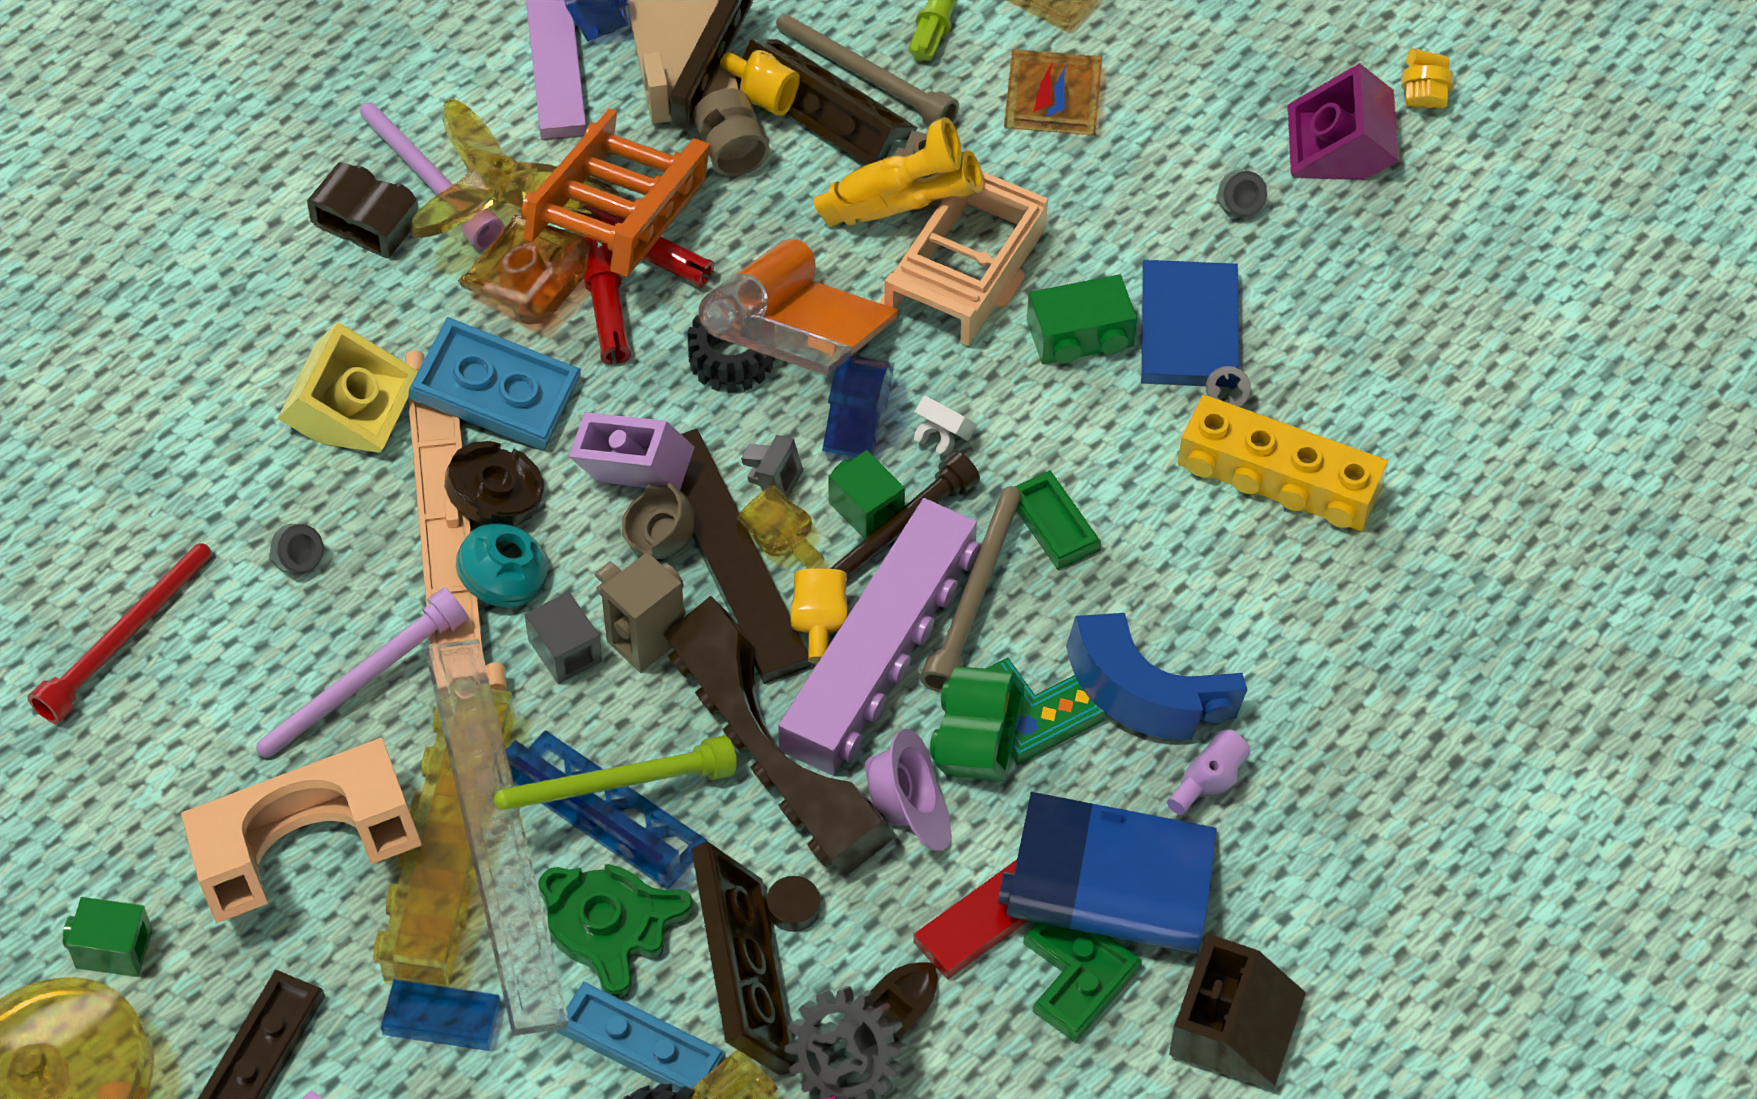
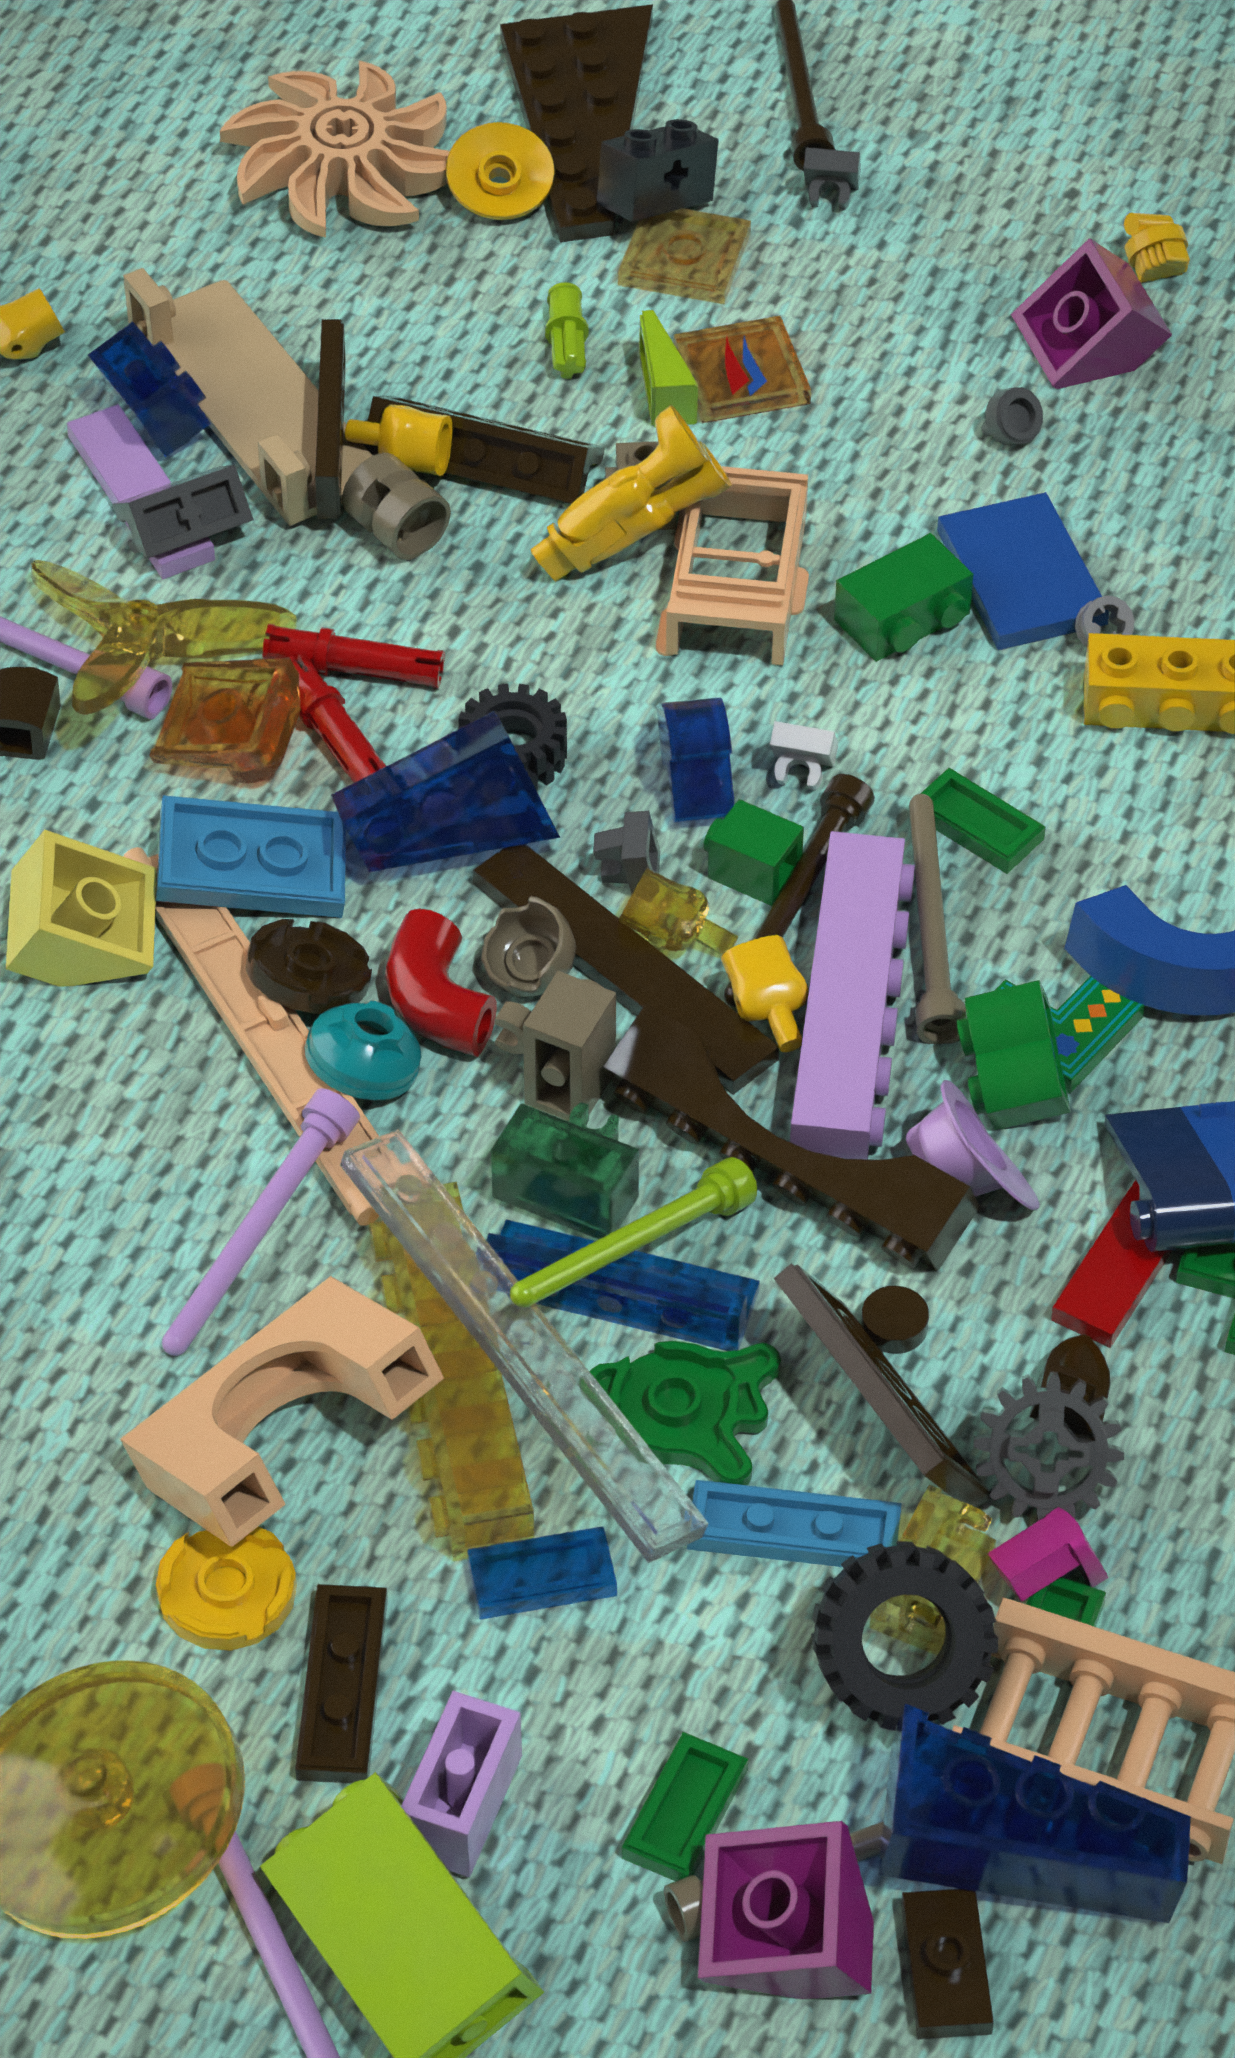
camera: 20 degrees left, 5 degrees down
(108, 936) = (92, 1611): green brick -> none
(219, 962) = (228, 1606): none -> yellow tile
(296, 548) = (102, 1107): dark grey tile -> none
(563, 637) = (474, 1106): dark grey panel -> none
(569, 524) = (426, 993): none -> red cylinder
(572, 91) = (184, 511): none -> dark grey hinge
(598, 708) = (566, 1170): none -> clear green brick
(631, 450) = (465, 874): lavender brick -> none
(644, 218) = (349, 619): orange fence -> none
(652, 378) = (445, 801): none -> clear blue wedge
(788, 315) = (551, 680): door -> none
(930, 105) = (616, 419): dark tan piece -> none
(984, 88) = (665, 372): none -> lime slope

